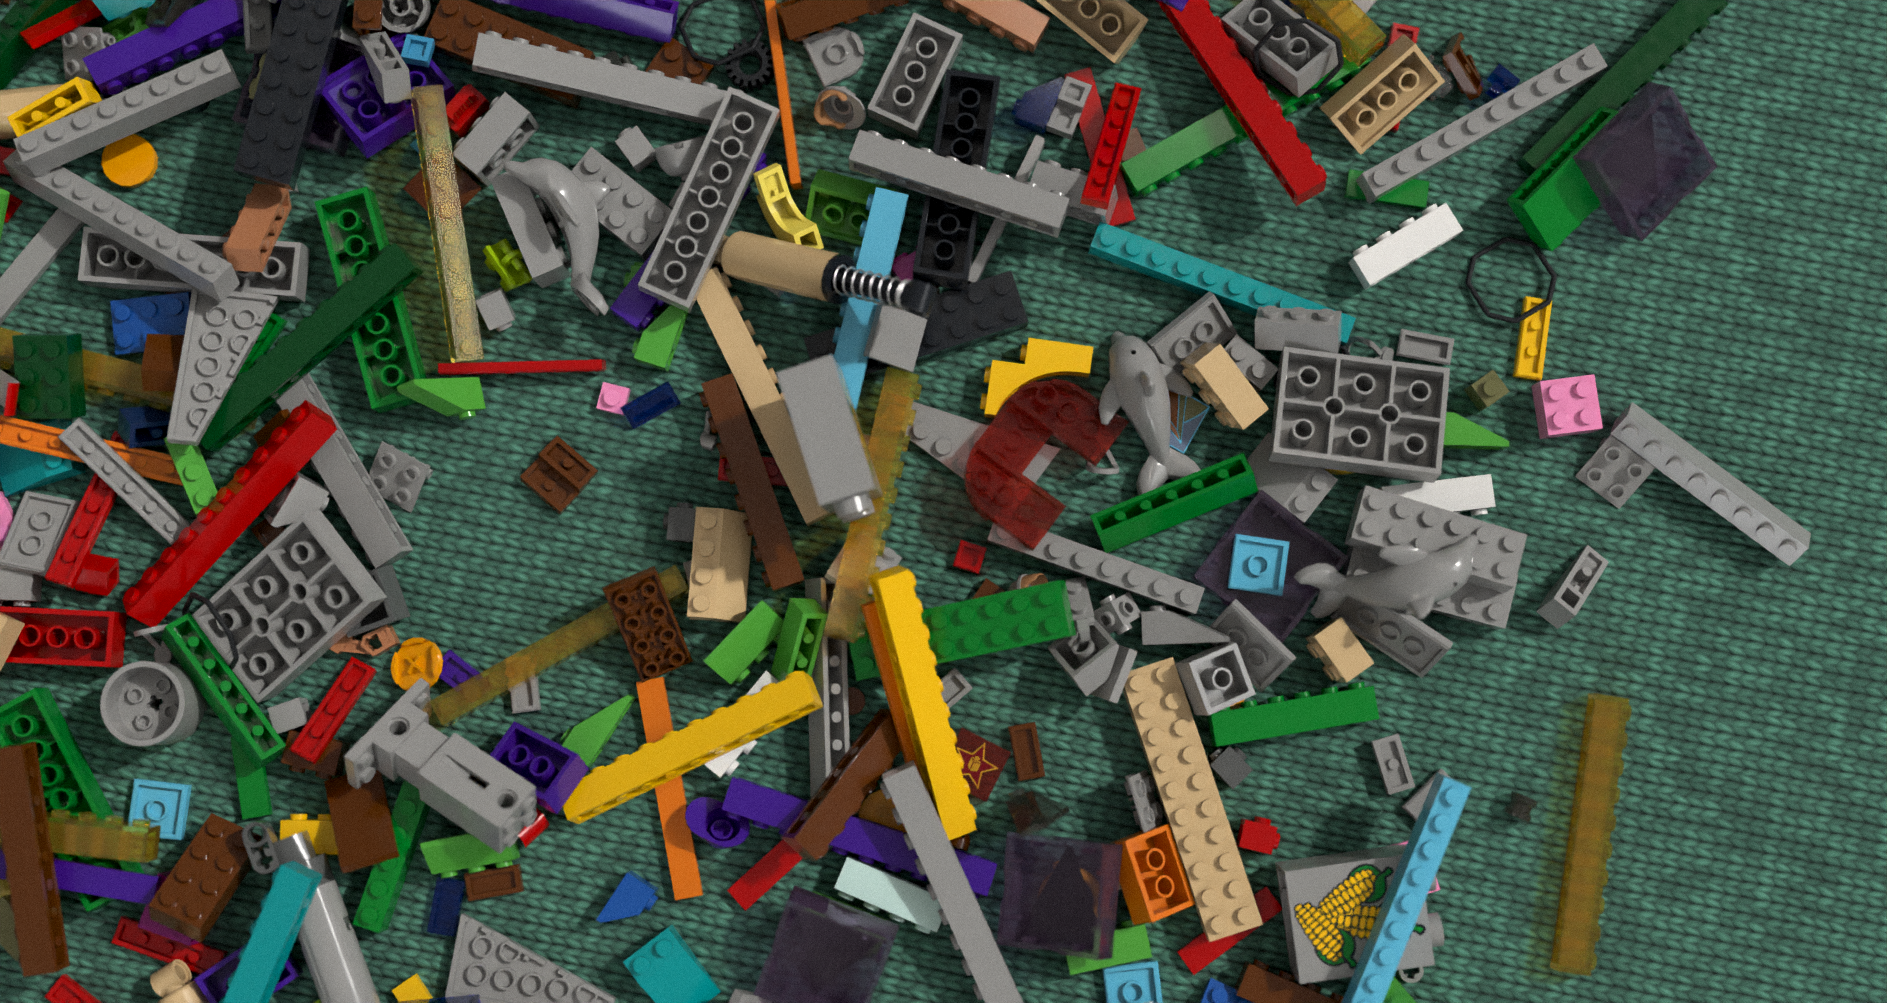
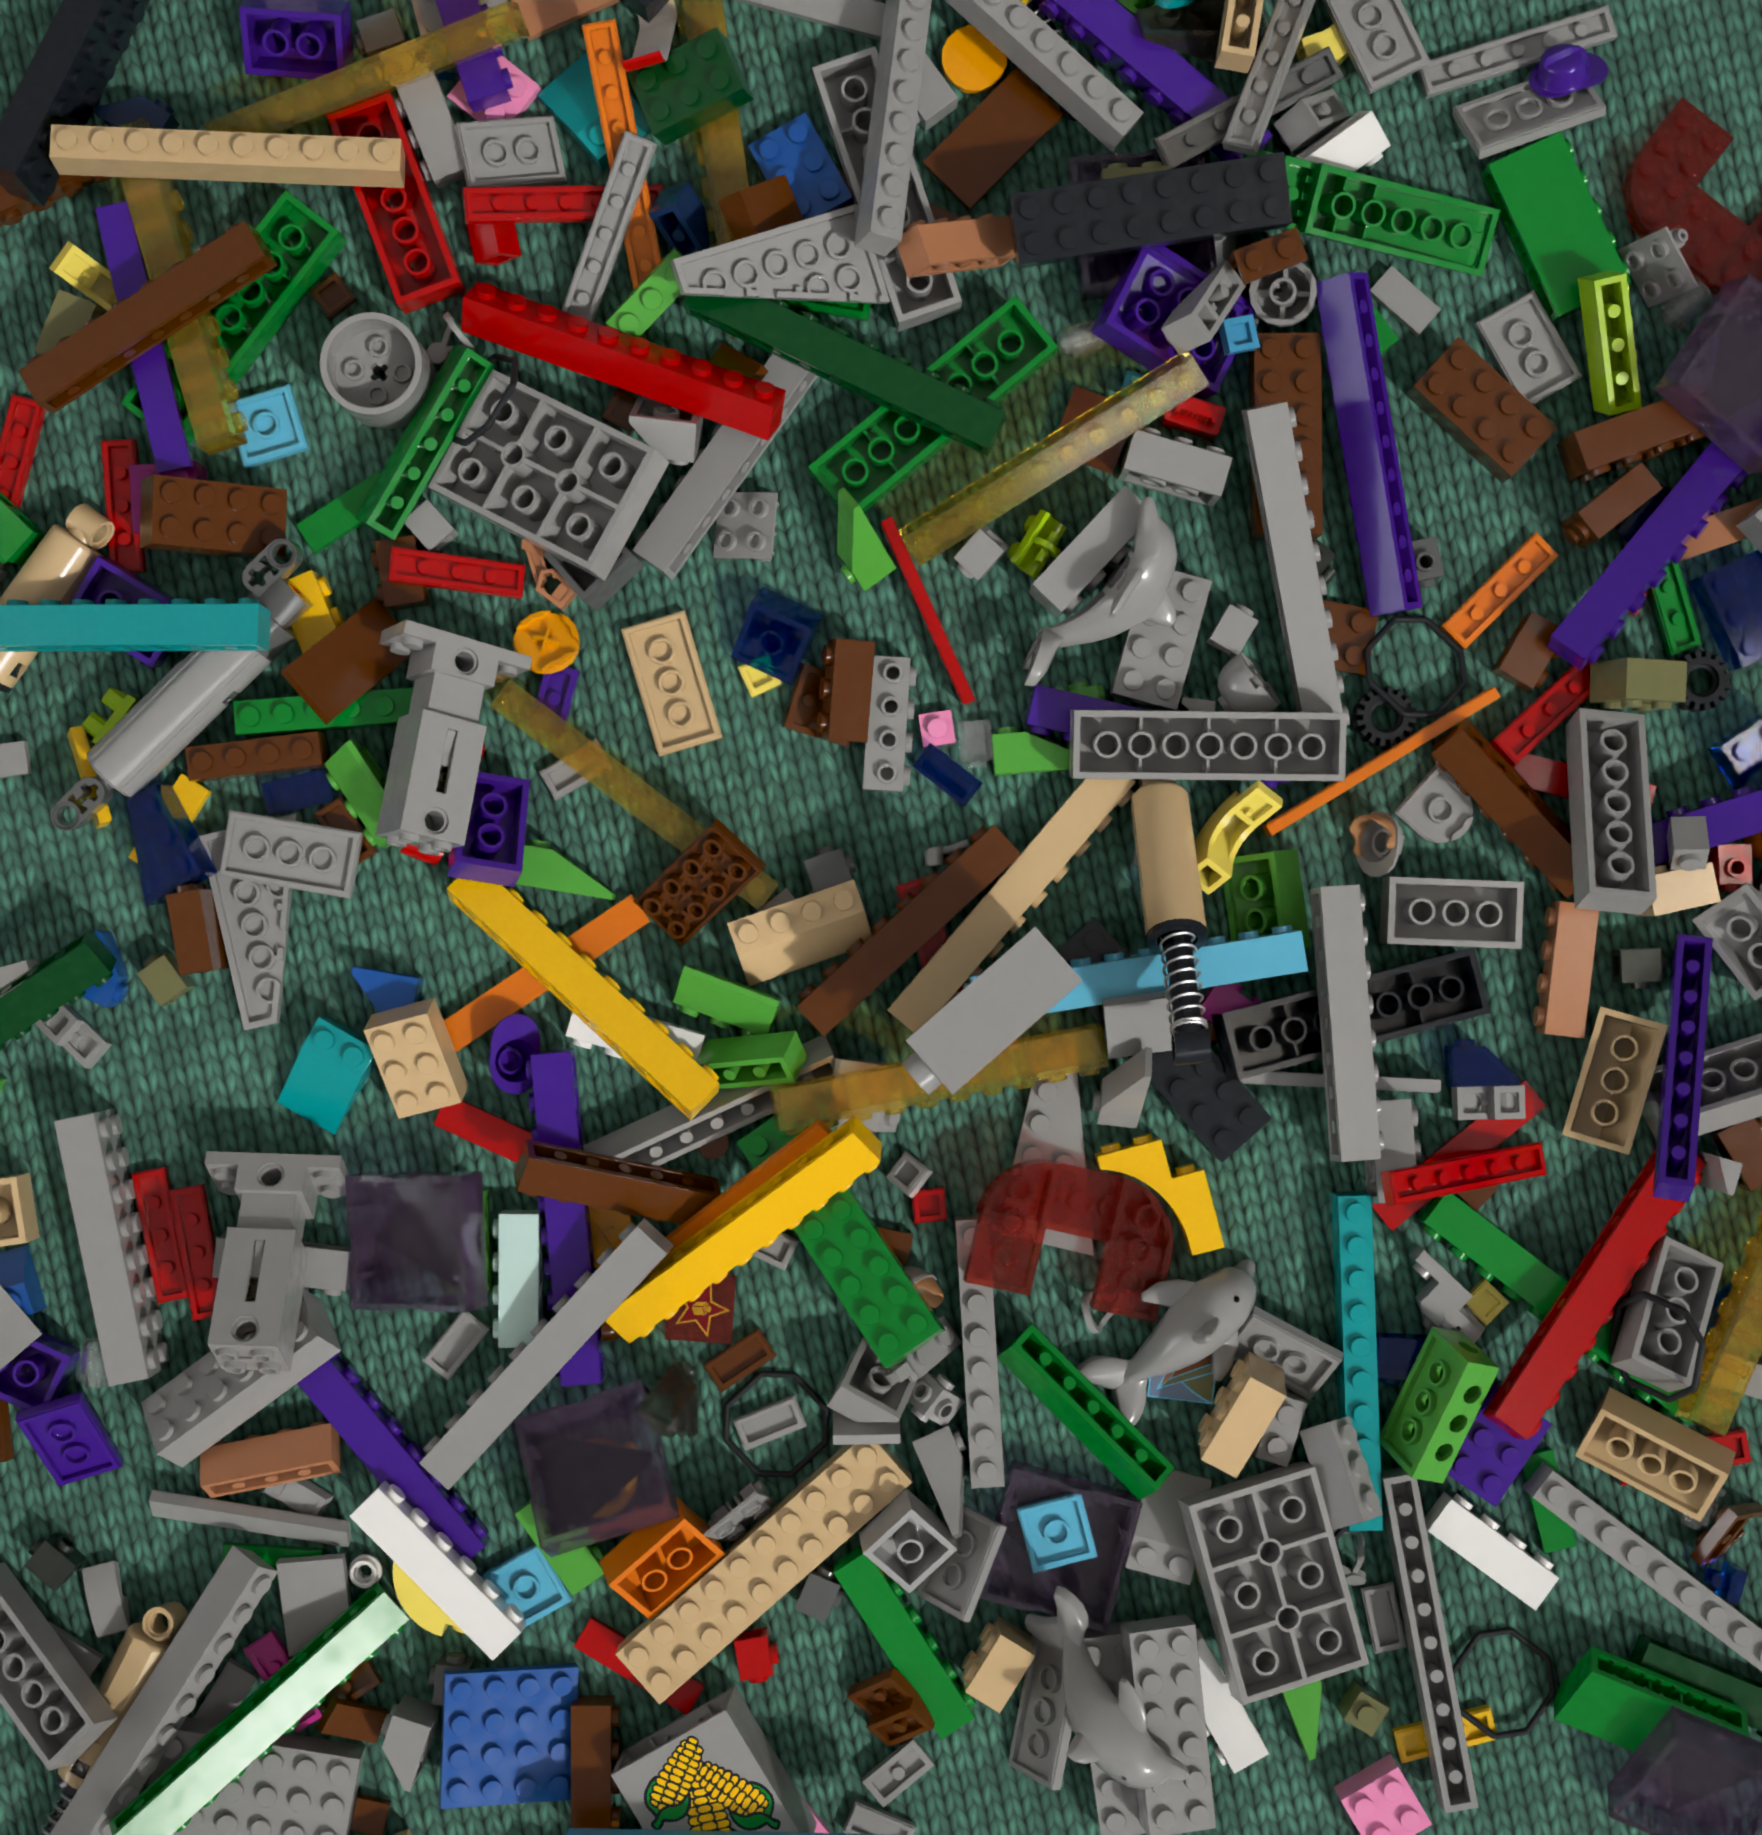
camera: 65 degrees right, 5 degrees up
(83, 716) = (333, 296): none -> reddish brown tile
(145, 198) = (936, 97): none -> light grey slope
(194, 171) = (992, 139): none -> reddish brown tile
(372, 169) = (1079, 340): none -> clear brick
(404, 925) = (257, 757): none -> reddish brown brick
(489, 488) = (776, 635): none -> clear blue slope
(489, 931) = (290, 854): none -> light grey tile
(491, 583) = (671, 683): none -> tan tile
(514, 514) = (757, 681): none -> light yellow tile
(552, 452) = (846, 690): none -> reddish brown brick
(592, 433) = (888, 724): none -> light grey brick
(635, 374) = (975, 743): none -> clear brick
(687, 899) = (416, 1058): none -> tan brick
(922, 965) = (456, 1344): none -> light grey tile
(939, 561) = (909, 1174): none -> light grey tile
(943, 371) = (1124, 1092): none -> light grey slope
(1051, 758) = (771, 1473): none -> black piece
(1084, 748) = (769, 1422): none -> light grey tile
(1205, 203) = (1444, 1298): none -> light grey plate
(1218, 173) = (1486, 1301): none -> light yellow tile
(1232, 248) = (1397, 1355): none -> clear blue slope
(1276, 236) = (1438, 1404): none -> bright green brick
(1329, 218) = (1491, 1456): none -> dark purple brick
(1339, 746) = (893, 1707): none -> reddish brown slope
(1454, 320) = (1427, 1641): none -> light grey brick

